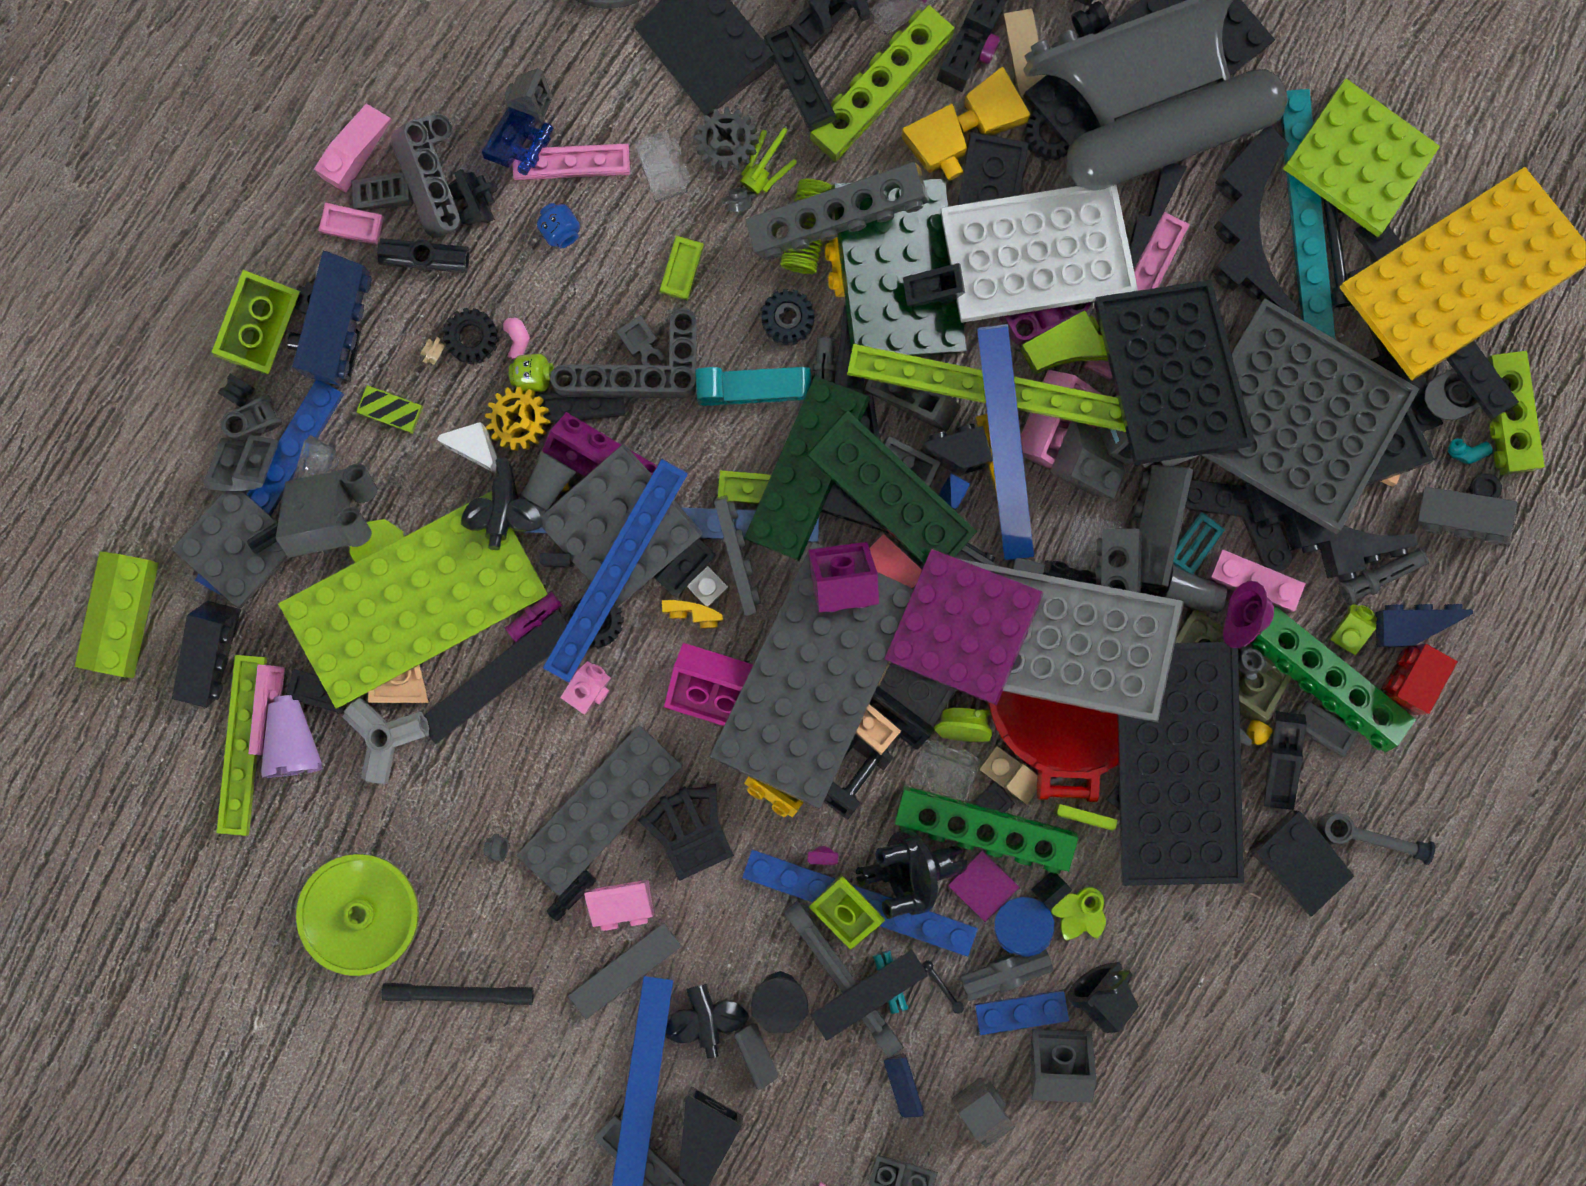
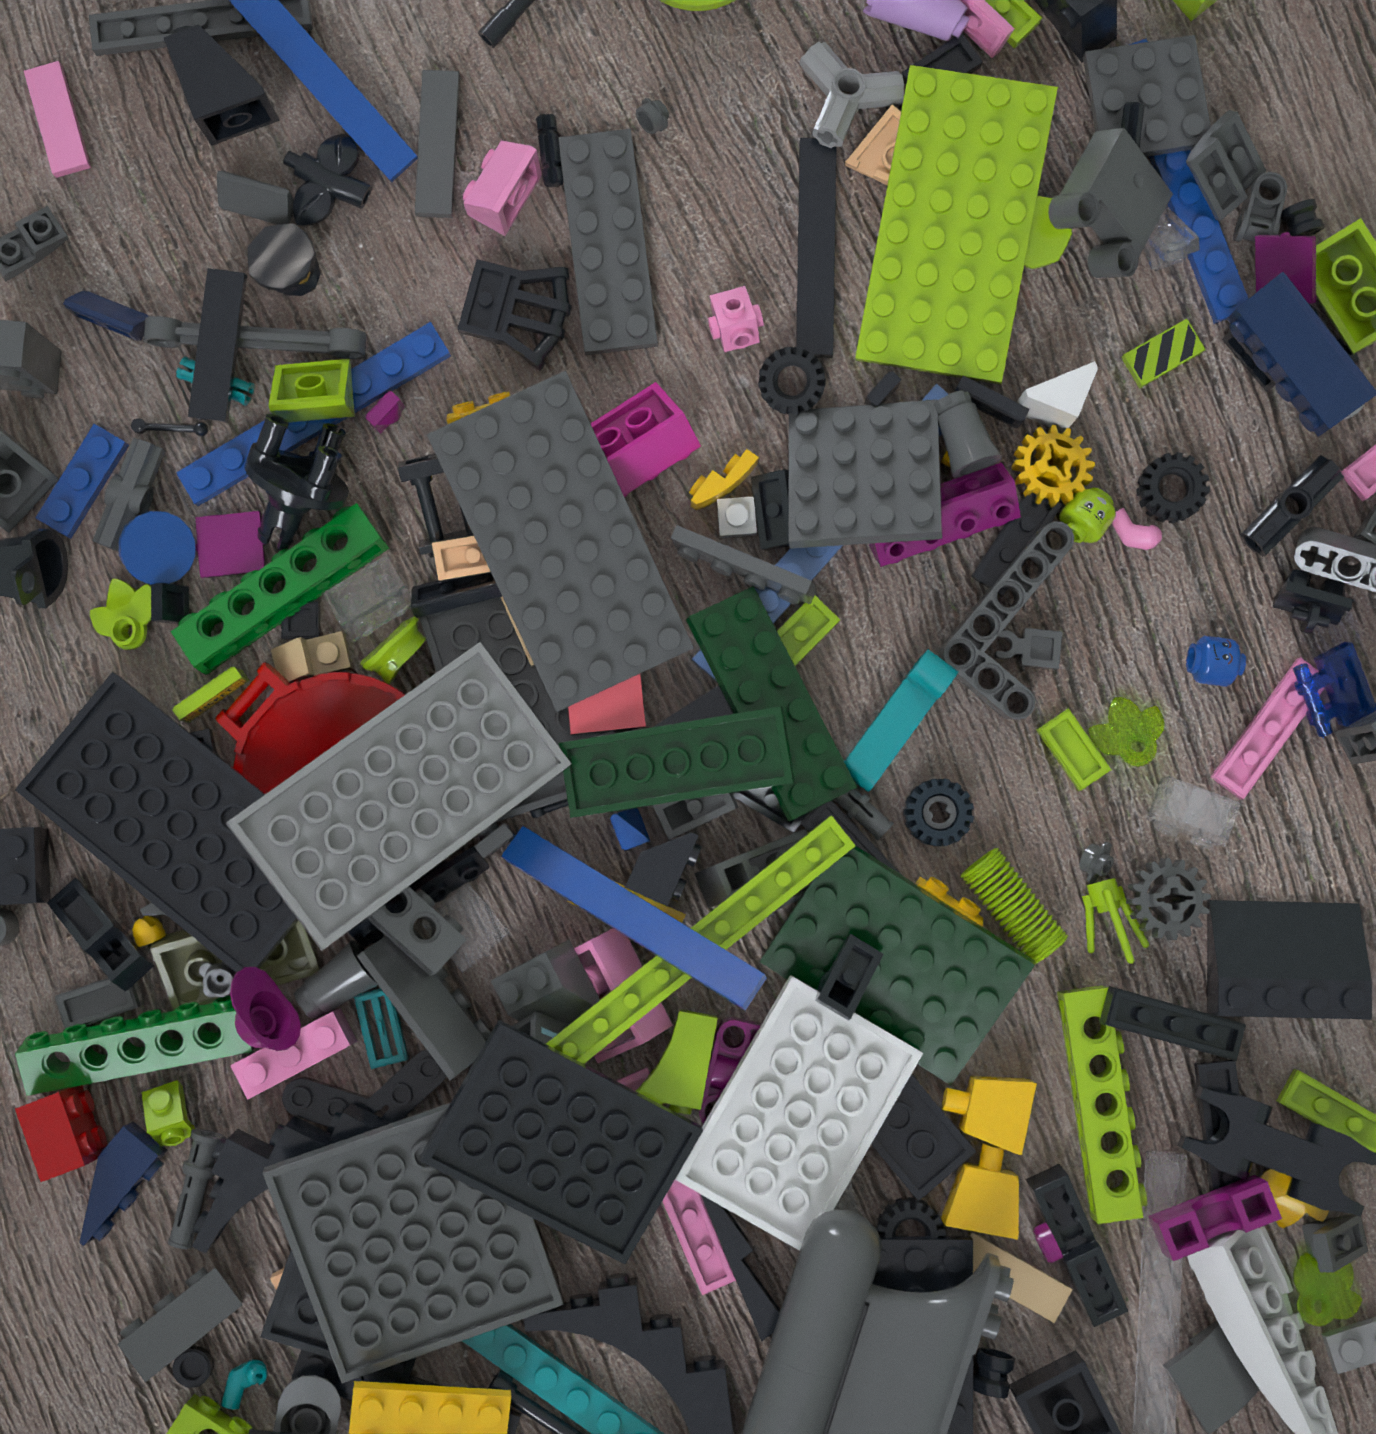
camera: 130 degrees right, 0 degrees up
(276, 376) = (1289, 255): none -> magenta piece
(432, 350) = (1188, 439): tan plate -> none
(500, 514) = (969, 367): black plant -> none
(533, 616) = (845, 327): magenta pin -> none
(615, 570) = (823, 430): blue plate -> none
(643, 248) = (1128, 726): none -> clear neon green plate
(764, 226) = (1046, 856): dark grey brick -> none
(844, 577) = (632, 644): magenta slope -> none
(964, 626) = (484, 720): magenta plate -> none

